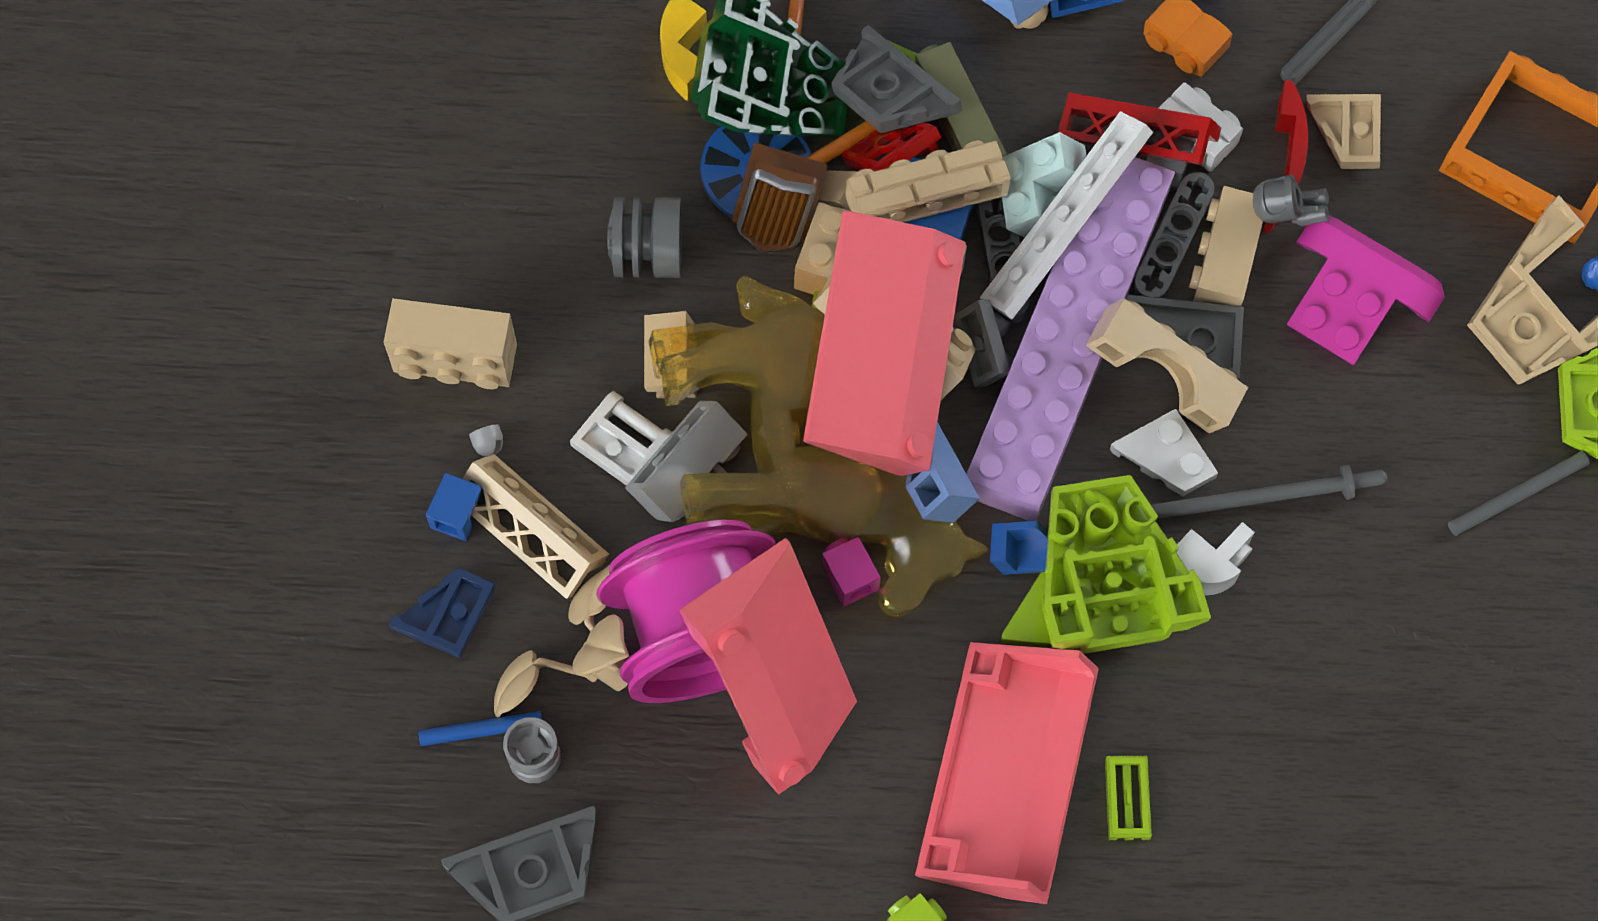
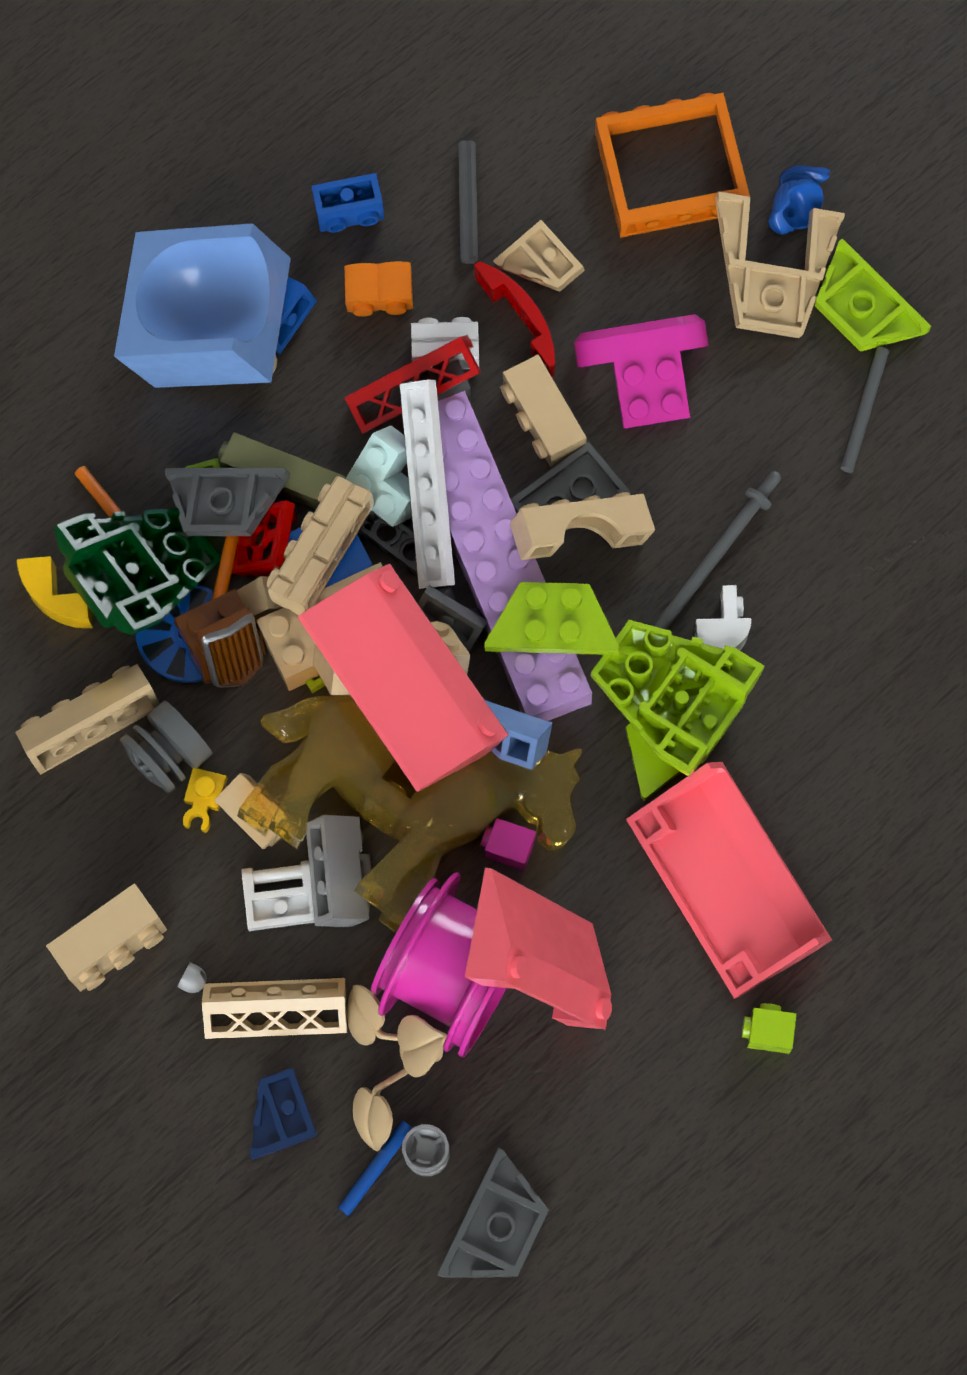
camera: 40 degrees left, 5 degrees up
(453, 507) = (216, 1042): blue panel -> none
(607, 162) = (87, 719): none -> tan slope
(644, 300) = (201, 793): none -> yellow plate
(1019, 547) = (601, 729): blue panel -> none
(1062, 416) = (553, 620): none -> lime wing
(1128, 831) = (835, 846): lime tile -> none
(1168, 453) = (632, 580): white wing -> none
(1174, 238) = (499, 434): dark grey beam -> none
(1283, 201) = (554, 349): dark grey piece -> none

